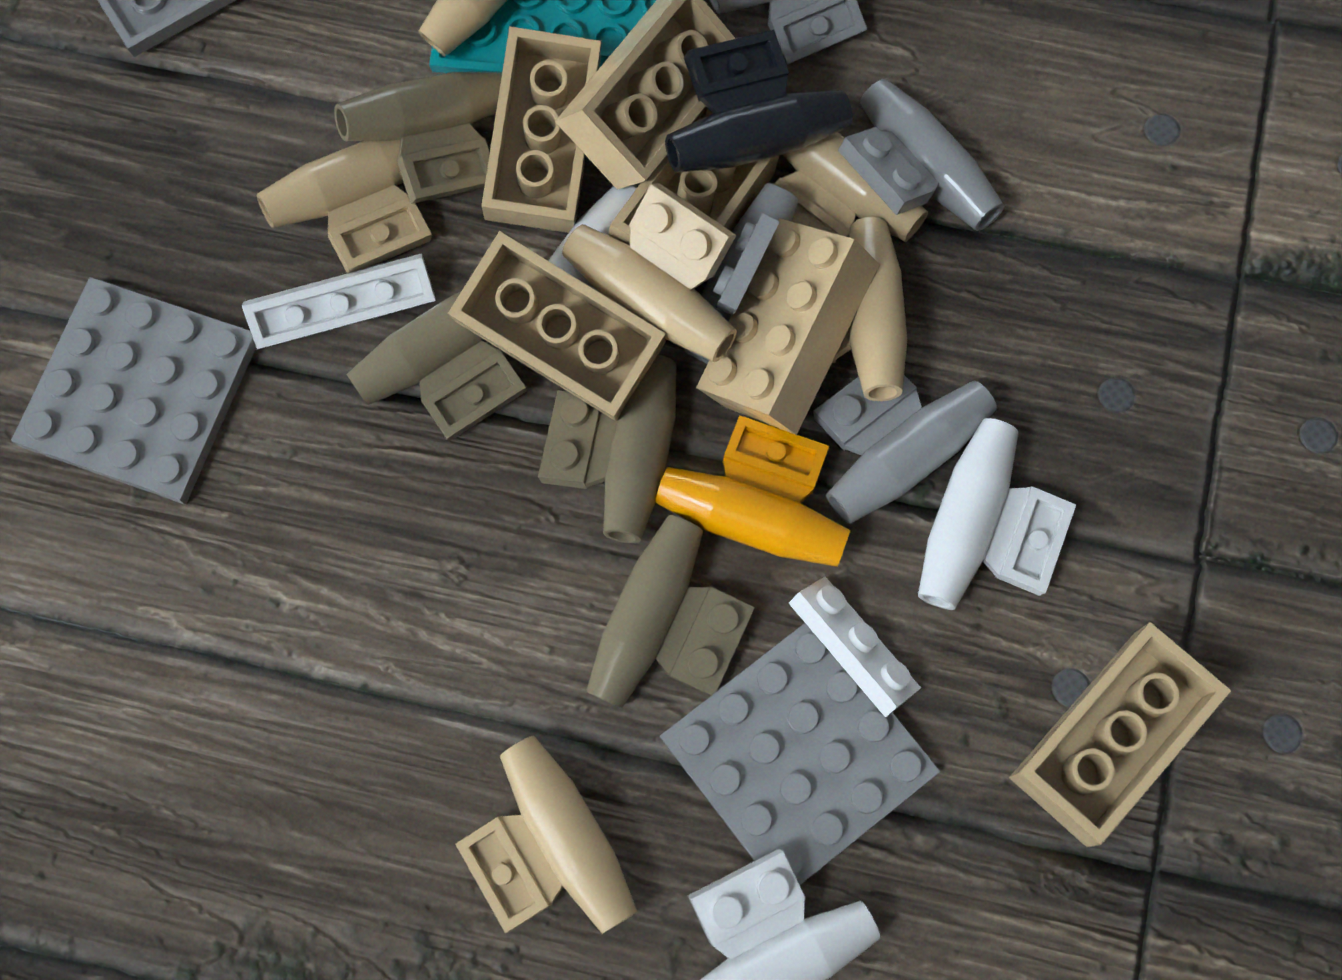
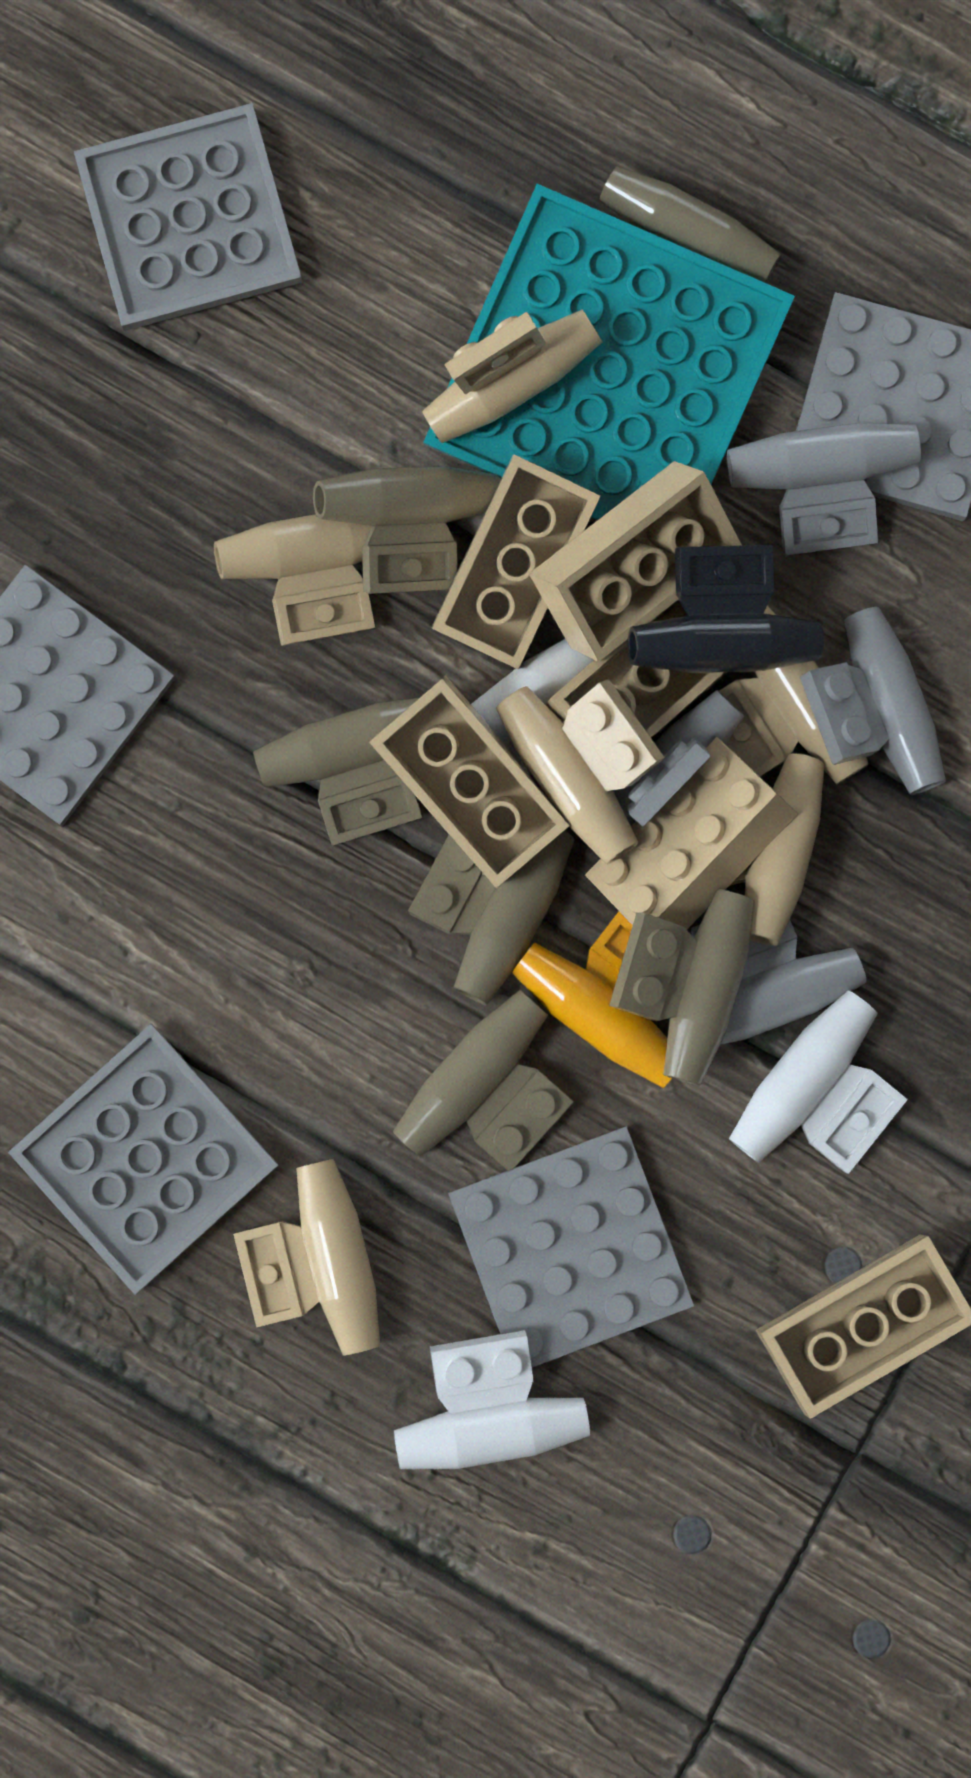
camera: 10 degrees right, 10 degrees up
(338, 301) = (265, 670): white plate -> none
(344, 799) = (143, 1159): none -> light grey plate
(827, 446) = (687, 980): none -> dark tan plate
(855, 645) = (654, 1166): white plate -> none

